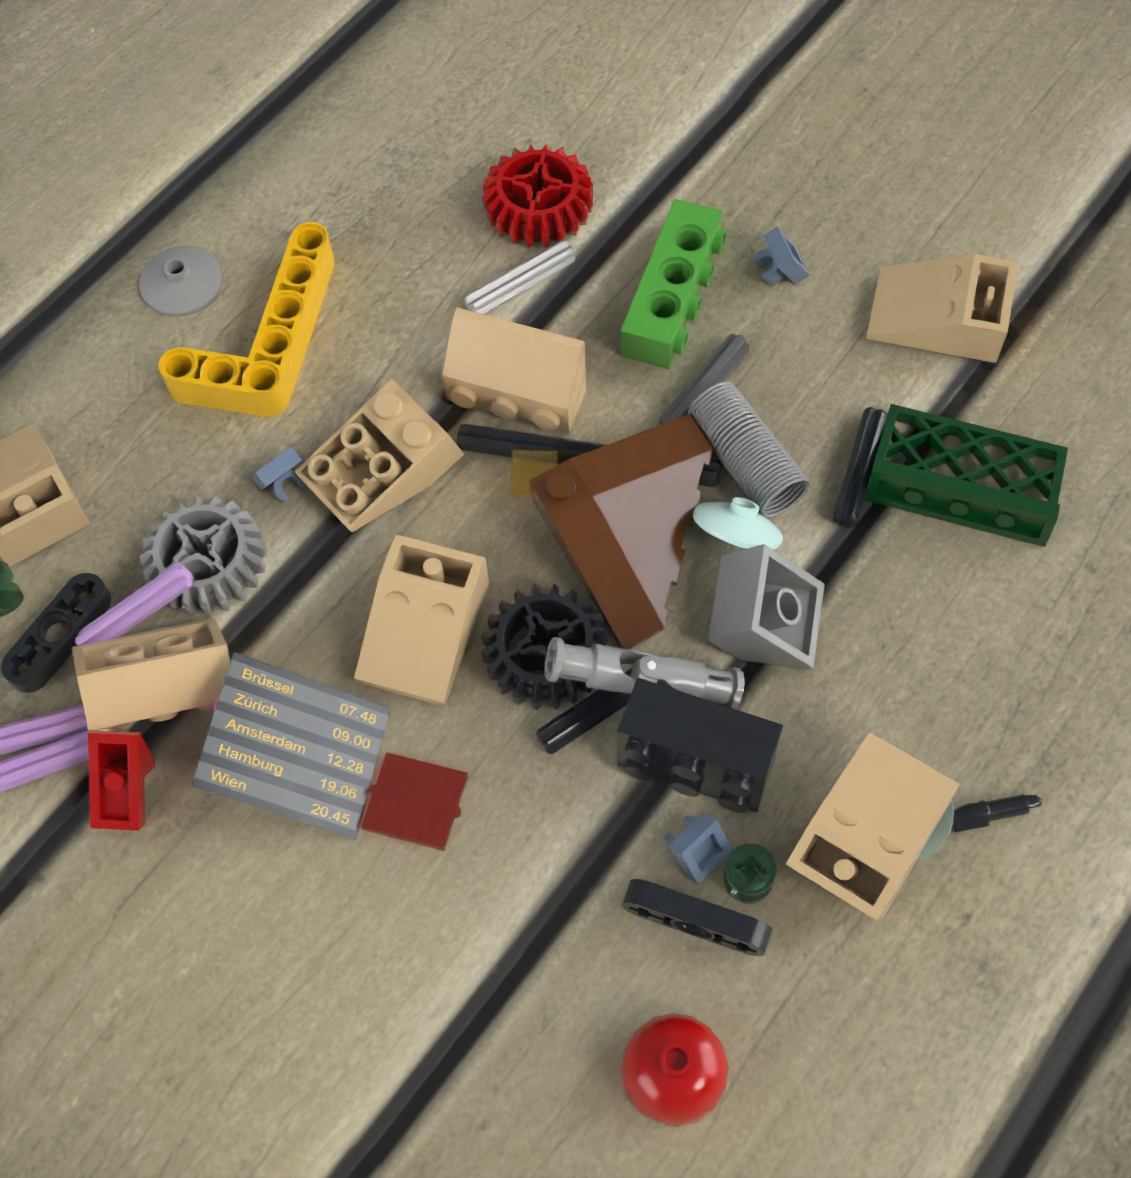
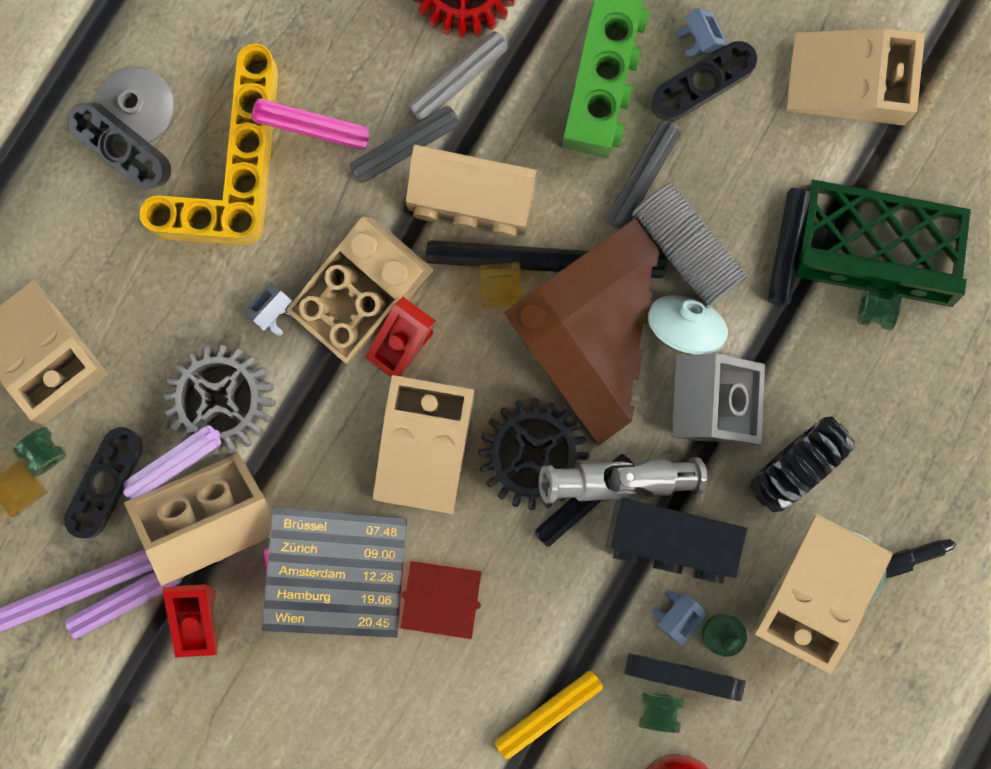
camera: 10 degrees left, 20 degrees up
(139, 305) = (101, 144): none -> black beam
(355, 299) = (310, 124): none -> axle
(416, 506) = (400, 338): none -> red slope
(436, 339) = (402, 144): none -> dark grey axle
(523, 947) = (548, 714): none -> yellow axle
(662, 956) = (661, 712): none -> clear green wheel
(792, 290) = (723, 57): none -> black beam
(857, 678) = (802, 464): none -> black gear
(959, 532) = (879, 307): none -> clear green wheel

